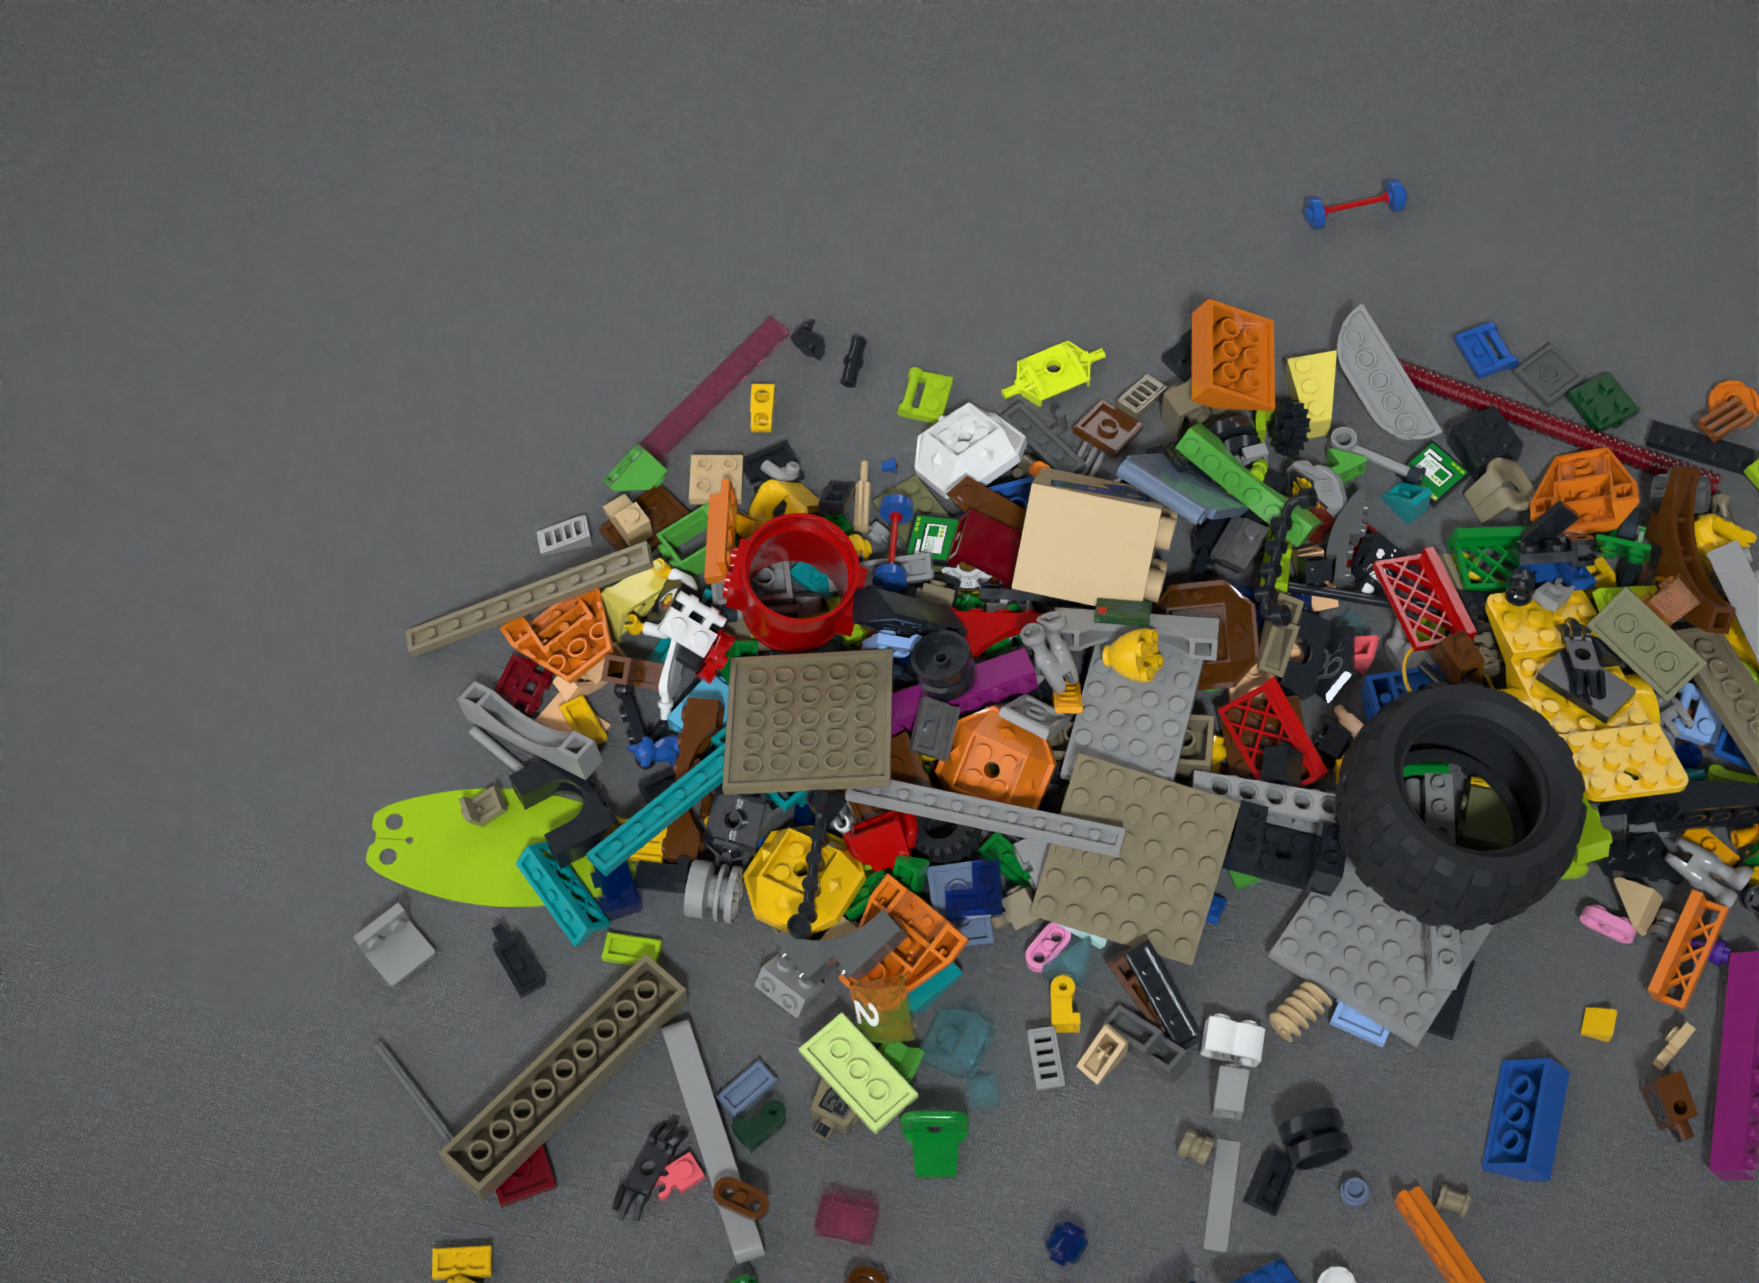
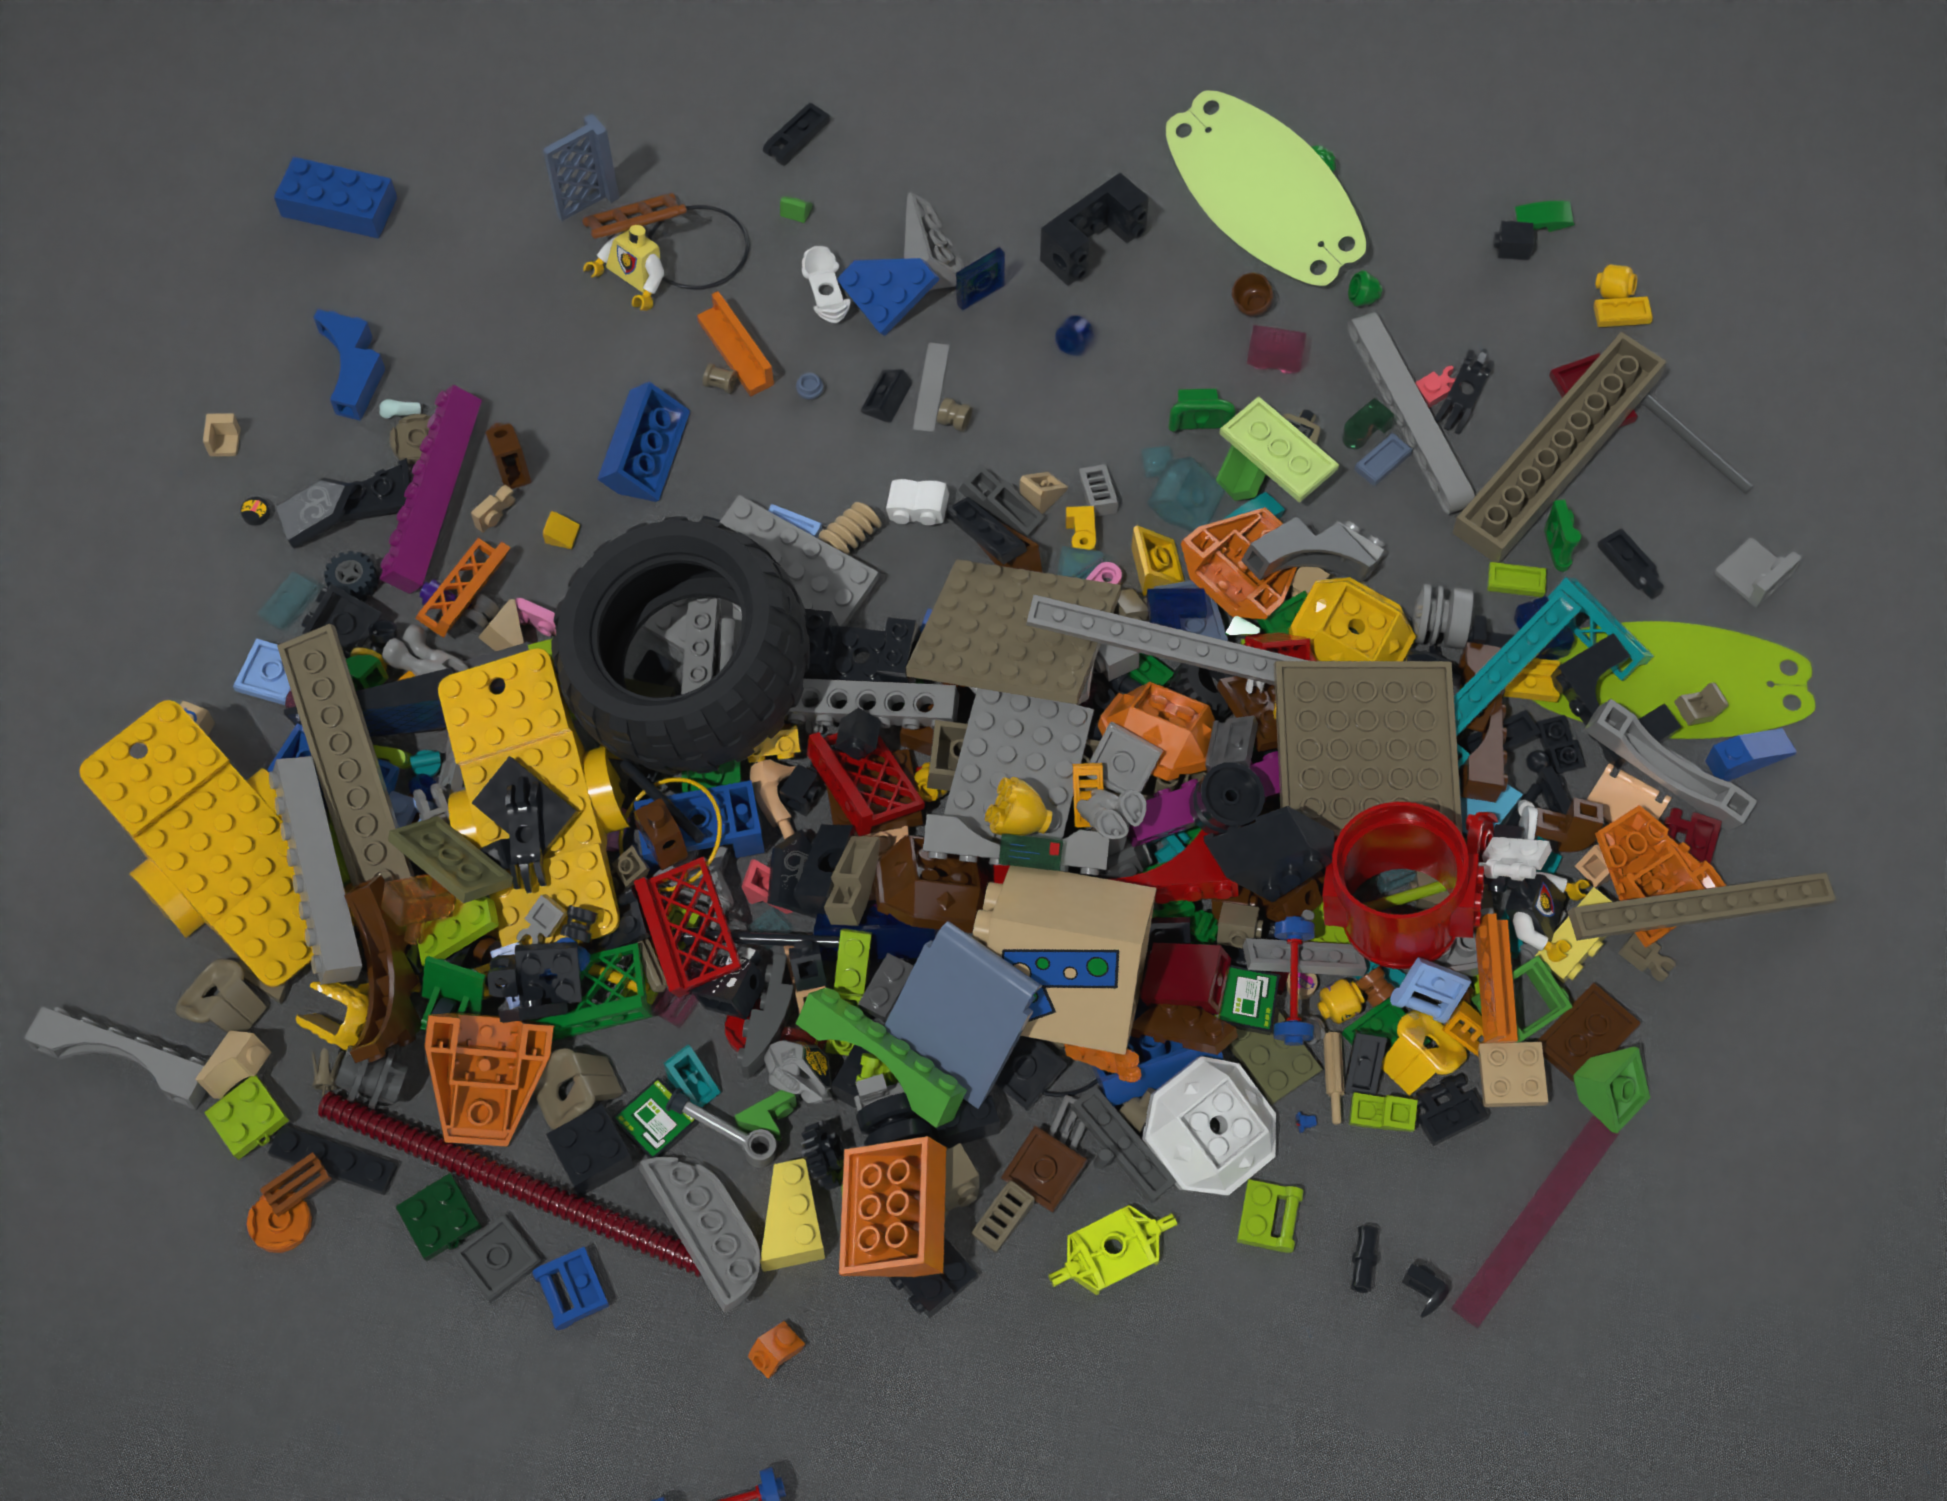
camera: 175 degrees right, 0 degrees up
(446, 764) = (1748, 753): none -> blue slope
(575, 542) = (1661, 1034): light grey slope -> none
(582, 719) = (1607, 791): yellow tile -> none
(582, 980) = (1561, 535): none -> green plate
(621, 779) = (1559, 745): none -> black slope
(629, 520) = (1607, 1021): tan arch -> none
(661, 751) = (1522, 759): blue animal -> none
(743, 1197) = (1376, 346): reddish brown plate -> none
(762, 408) = (1470, 1189): yellow leg -> none
(786, 473) = (1435, 1090): light grey arm -> none
(800, 924) = (1352, 527): black bar -> none
(824, 468) = (1383, 1112): none -> lime slope
(883, 1009) = (1255, 497): clear yellow slope -> none
(988, 970) = (1155, 559): none -> yellow slope
(1175, 456) = (965, 1079): black axle -> none
(1230, 1092) = (922, 455): light grey slope -> none
(1270, 571) = (859, 934): black bar -> none
(1315, 1139) = (844, 410): black wheel -> none
(1318, 306) = (775, 1348): none -> orange bracket

